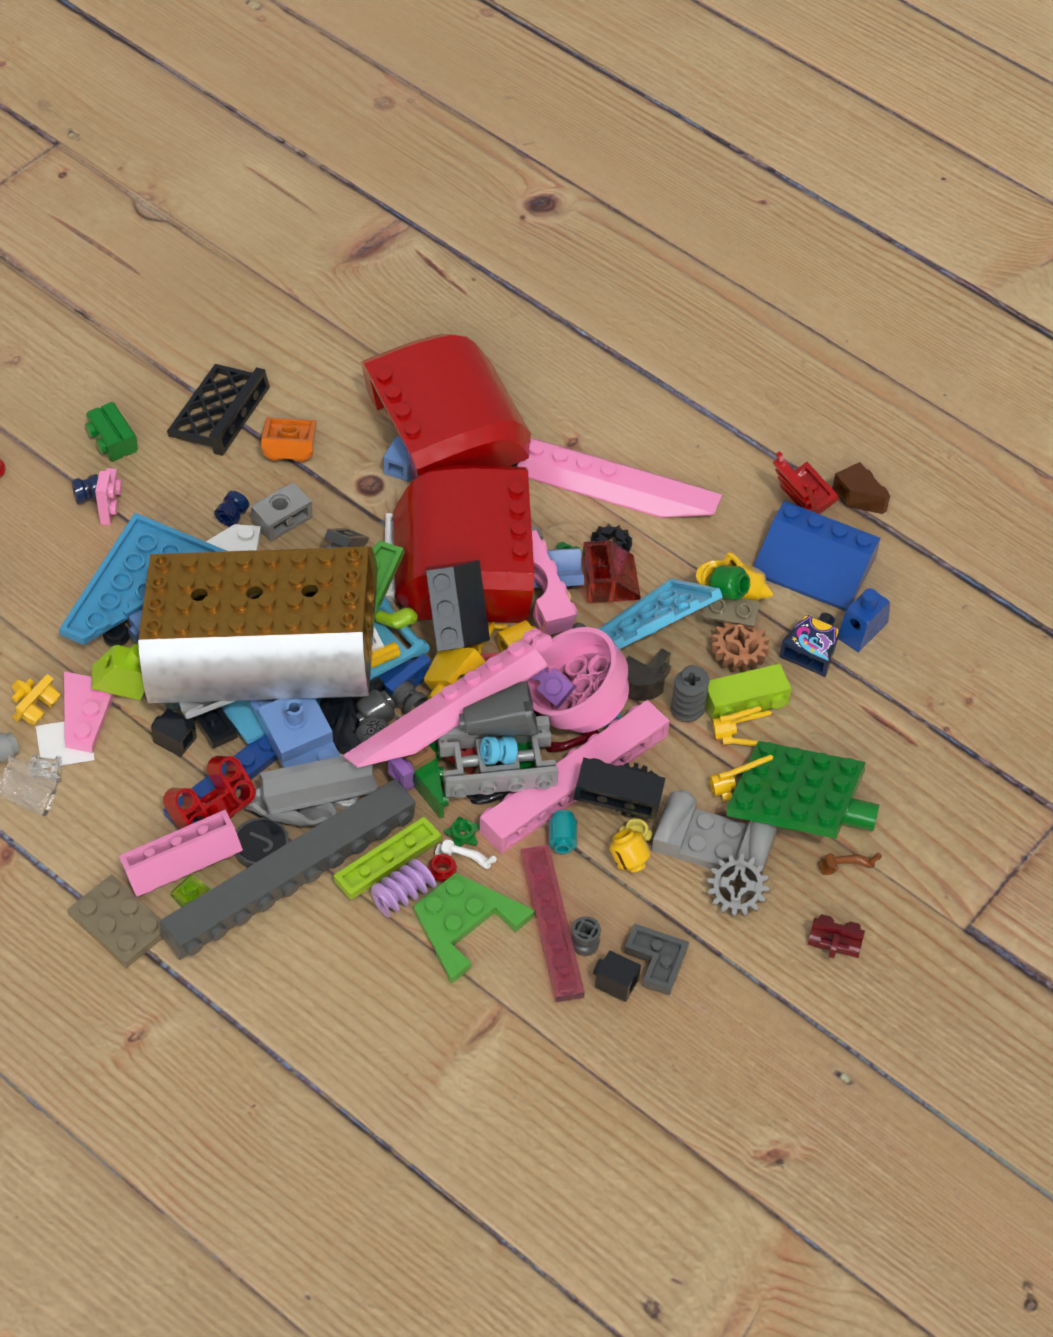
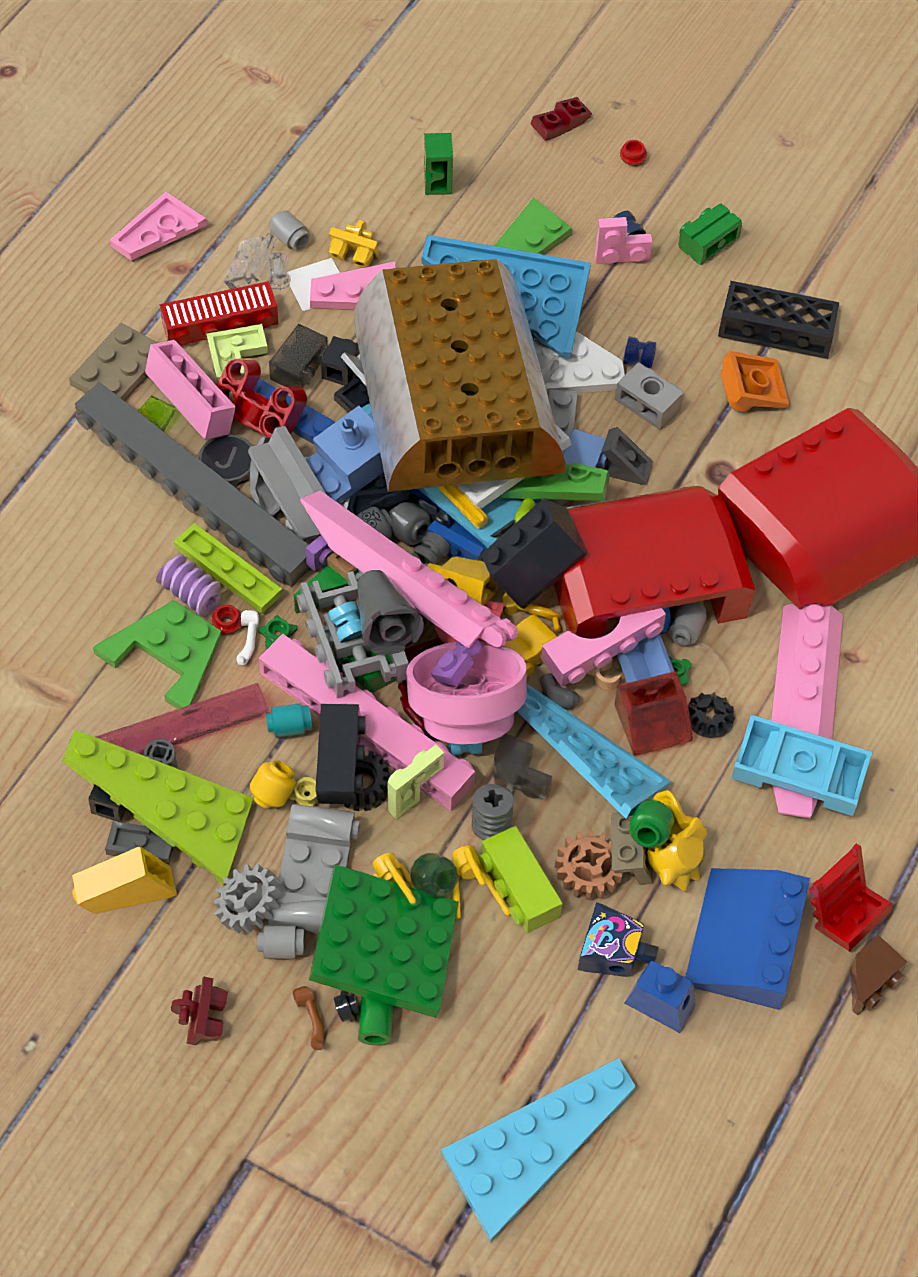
camera: 80 degrees right, 5 degrees up
(63, 562) = (535, 230): none -> bright green wing
(86, 823) = (224, 310): none -> red brick
(130, 823) = (235, 345): none -> yellowish green plate
(160, 763) = (298, 357): none -> clear smoke brick
(638, 925) = (174, 804): none -> lime wing
(658, 746) = (406, 783): none -> yellowish green plate
(675, 489) = (802, 764): none -> medium azure piece
(708, 979) = (124, 882): none -> yellow slope
(736, 748) = (434, 875): none -> clear green head
(780, 869) = (281, 942): none -> light grey brick
(847, 833) = (347, 1006): none -> black plate
(978, 741) = (523, 1151): none -> medium azure wing

